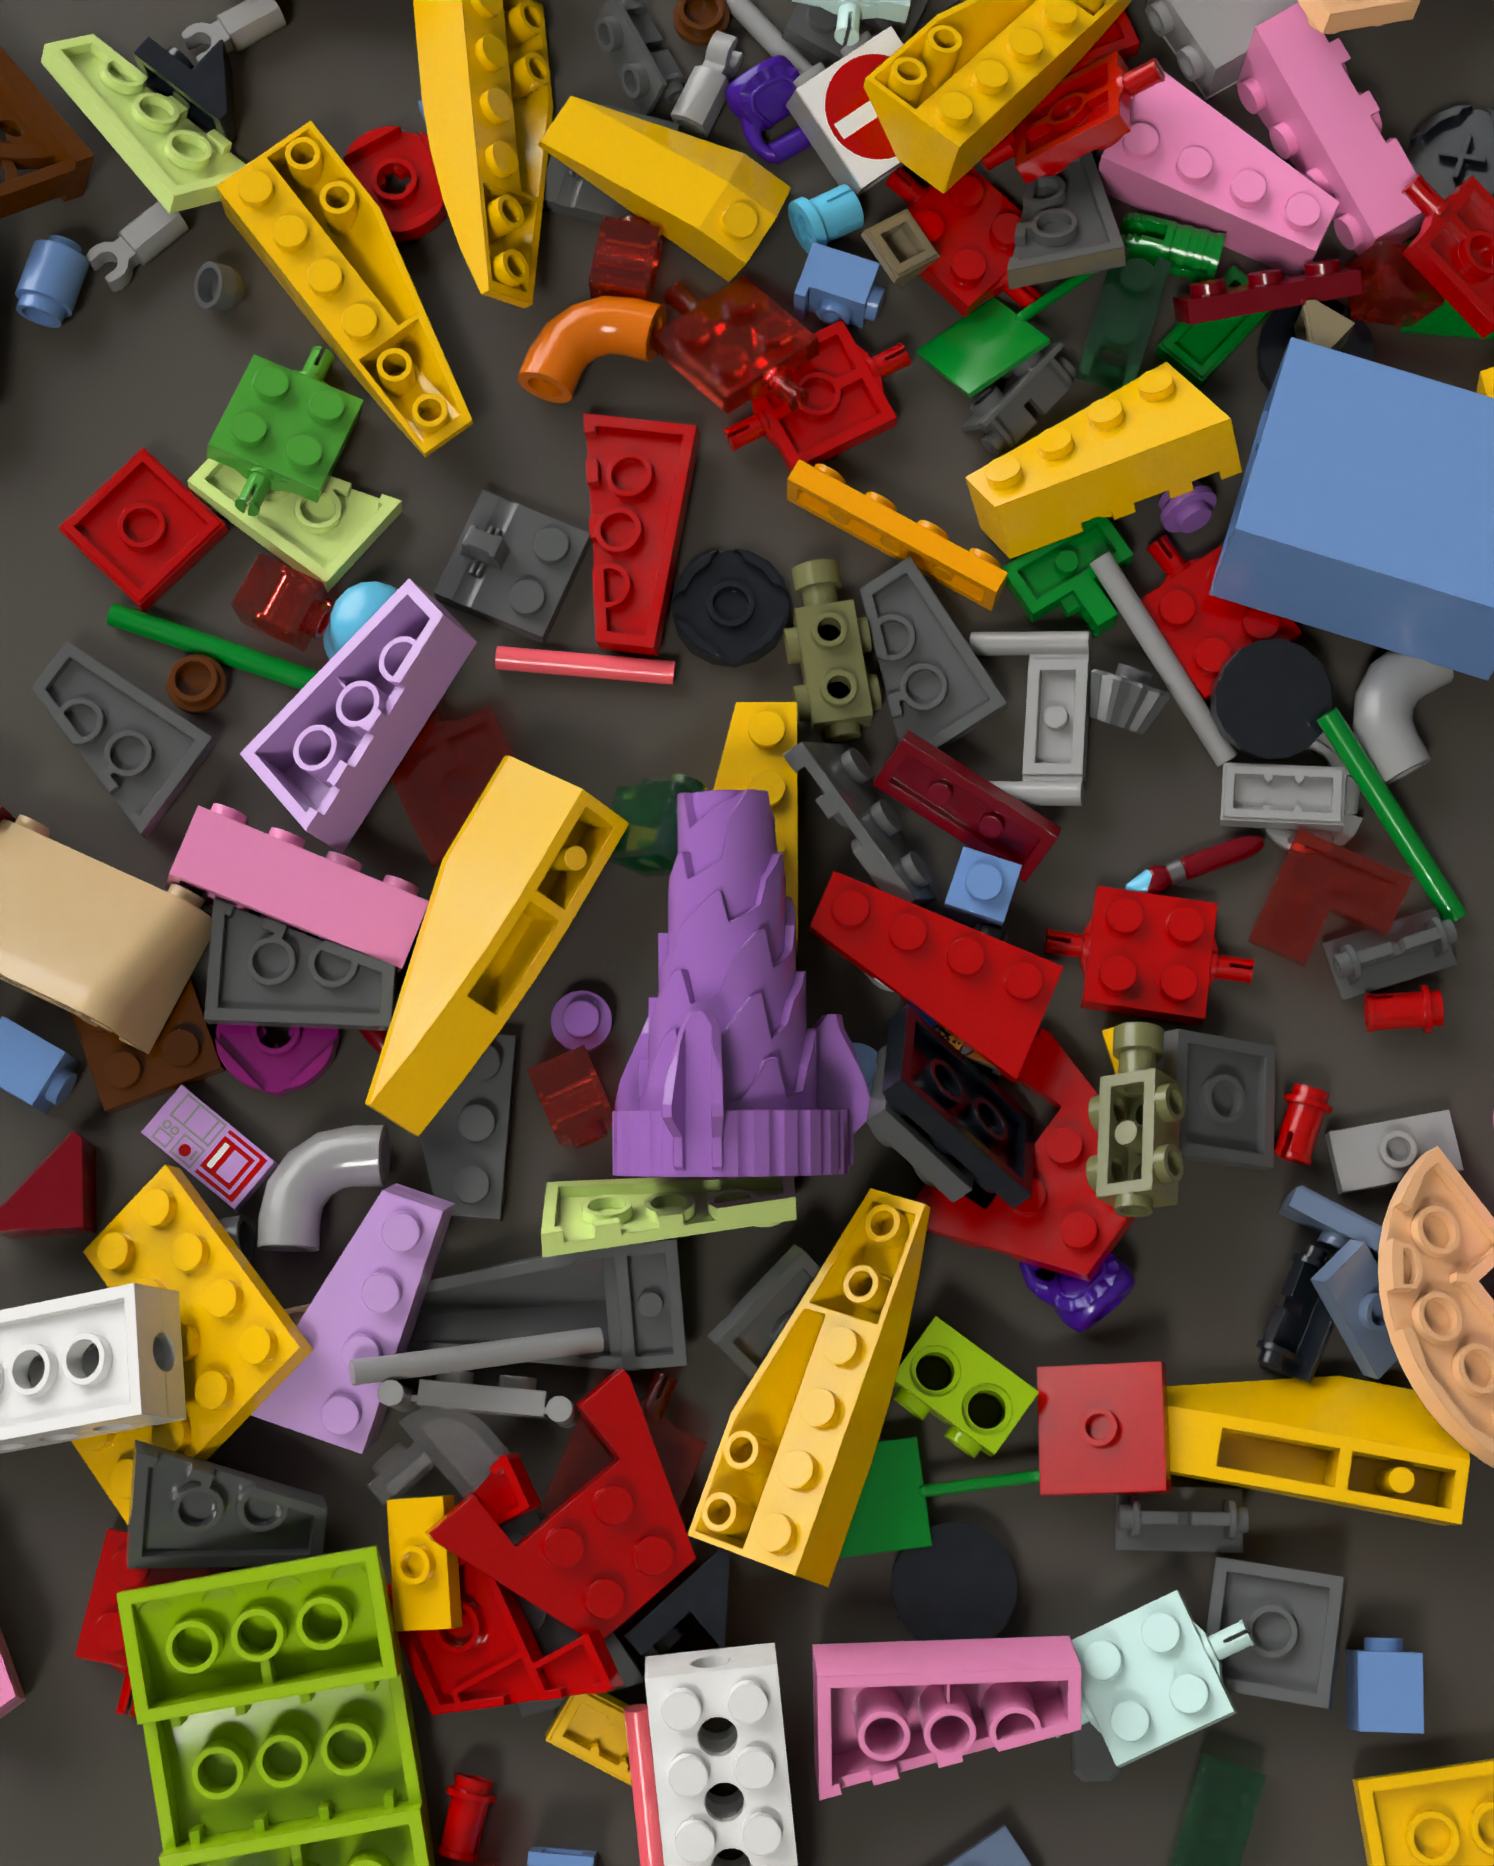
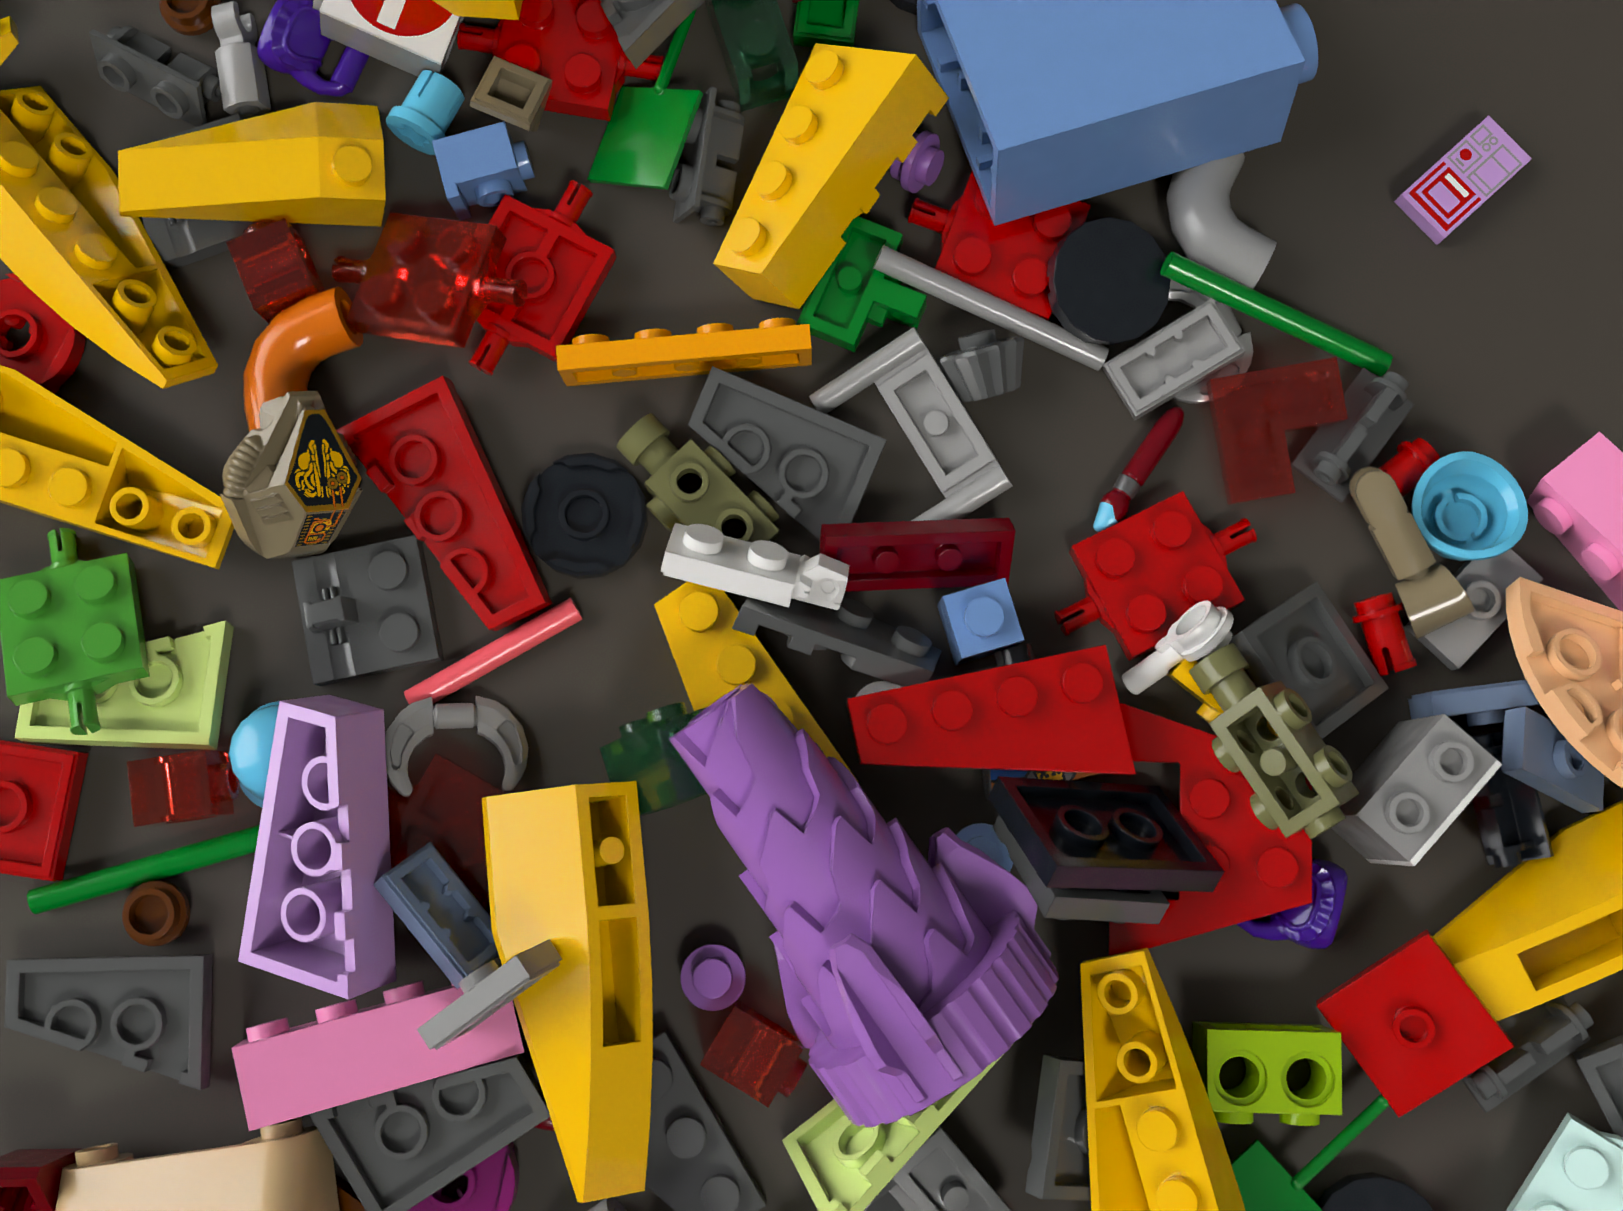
camera: 35 degrees left, 5 degrees up
(412, 822) = (440, 912): none -> sand blue plate
(413, 894) = (487, 992): none -> light grey plate
(490, 675) = (418, 723): none -> light grey piece
(532, 446) = (304, 498): none -> dark tan helmet
(831, 725) = (753, 569): none -> white hinge
(1148, 1007) = (1192, 637): none -> white plate
(1226, 1244) = (1413, 789): none -> light grey piece
(1356, 1114) = (1427, 592): none -> dark tan piece
(1436, 1065) = (1469, 507): none -> medium azure helmet

